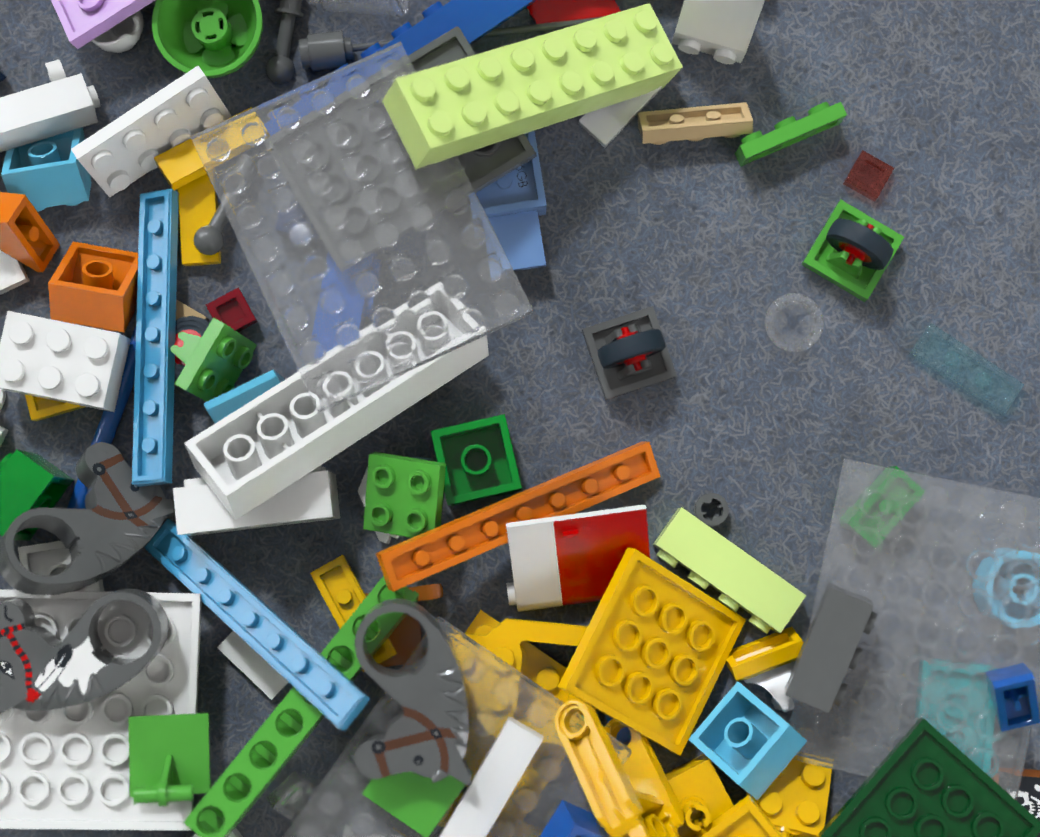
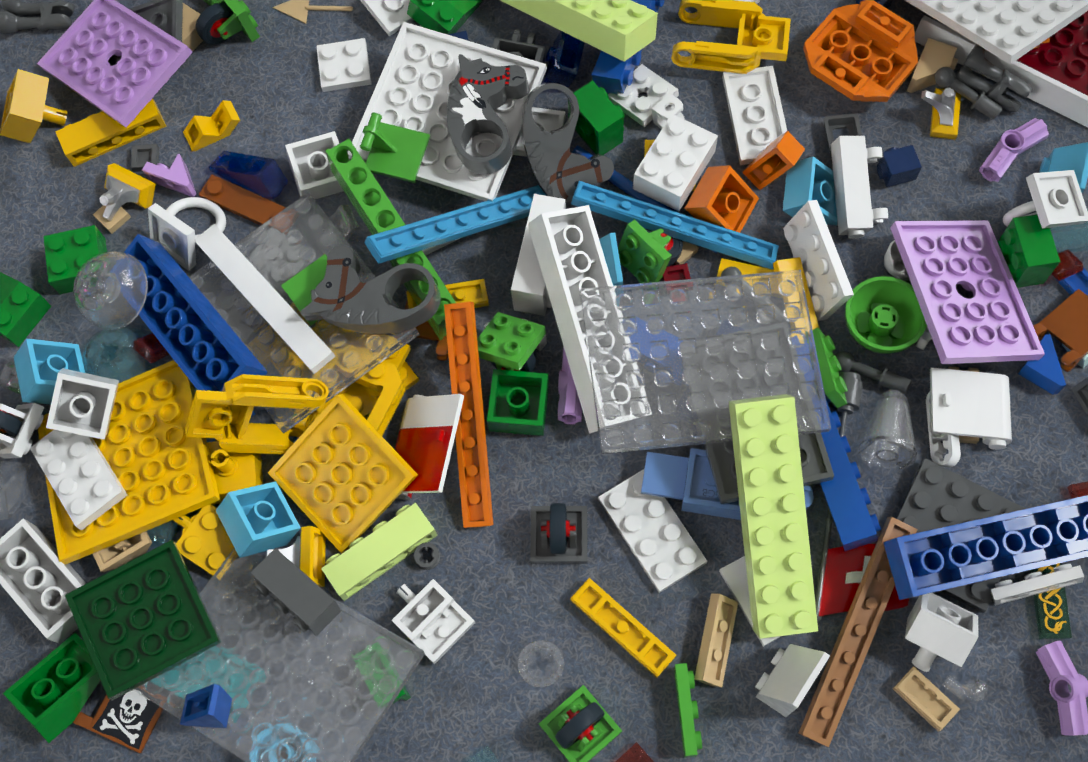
camera: 120 degrees right, 15 degrees down
(329, 60) = (829, 366): none -> bright green plate
(452, 396) = (569, 404): none -> lavender piece
(586, 241) = (652, 532): none -> white plate
(717, 239) = (623, 627): none -> yellow plate
(789, 472) = (432, 619): none -> white plate

